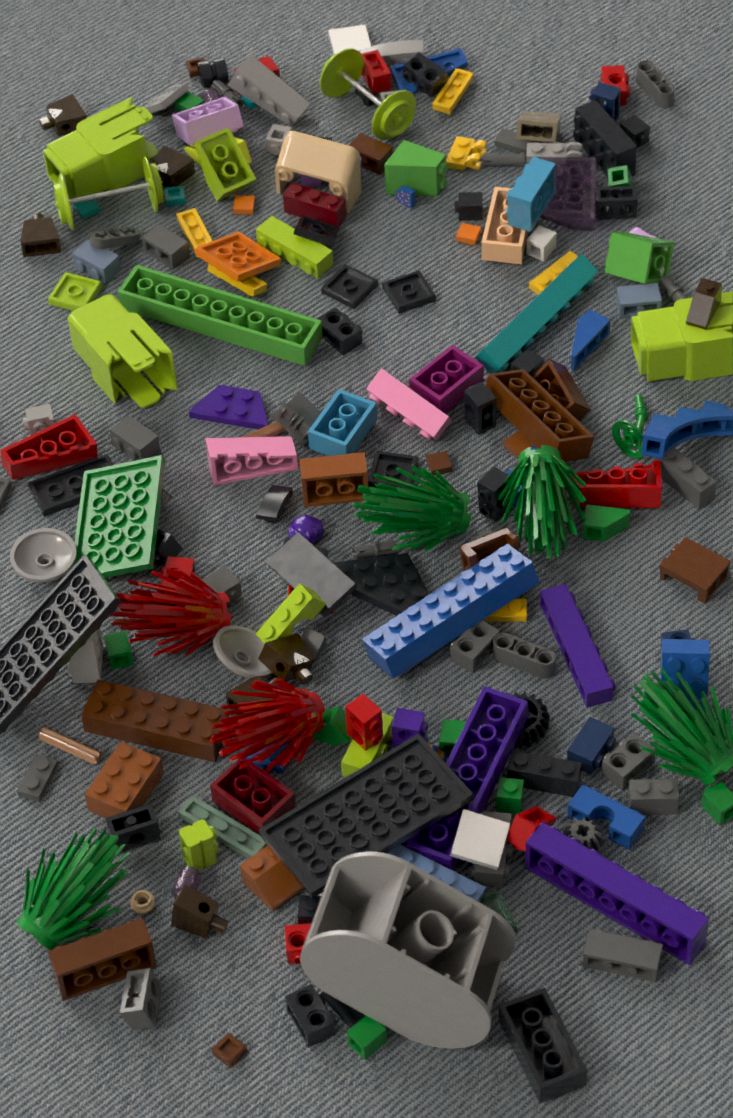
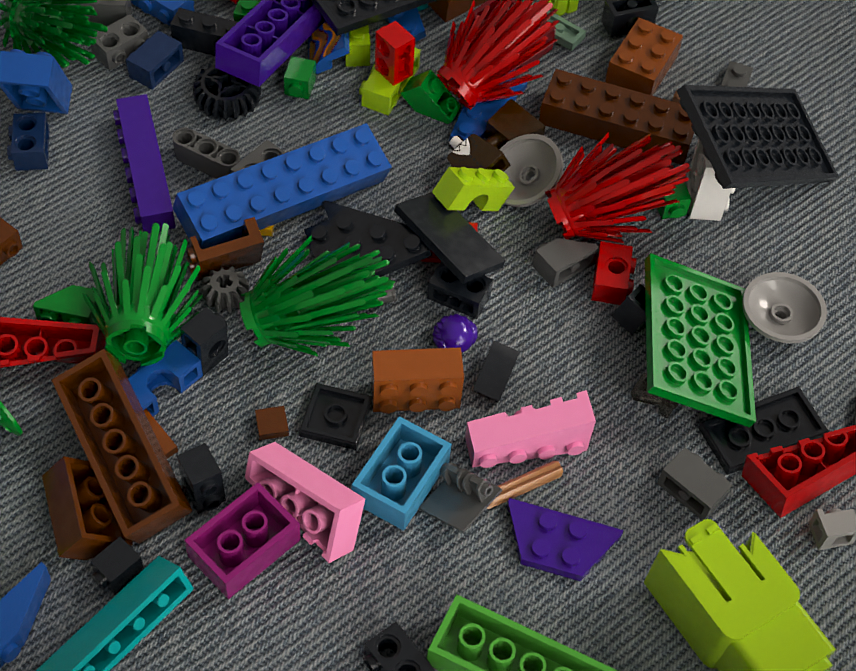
camera: 175 degrees right, 5 degrees up
(408, 724) = (346, 69): dark purple brick -> none

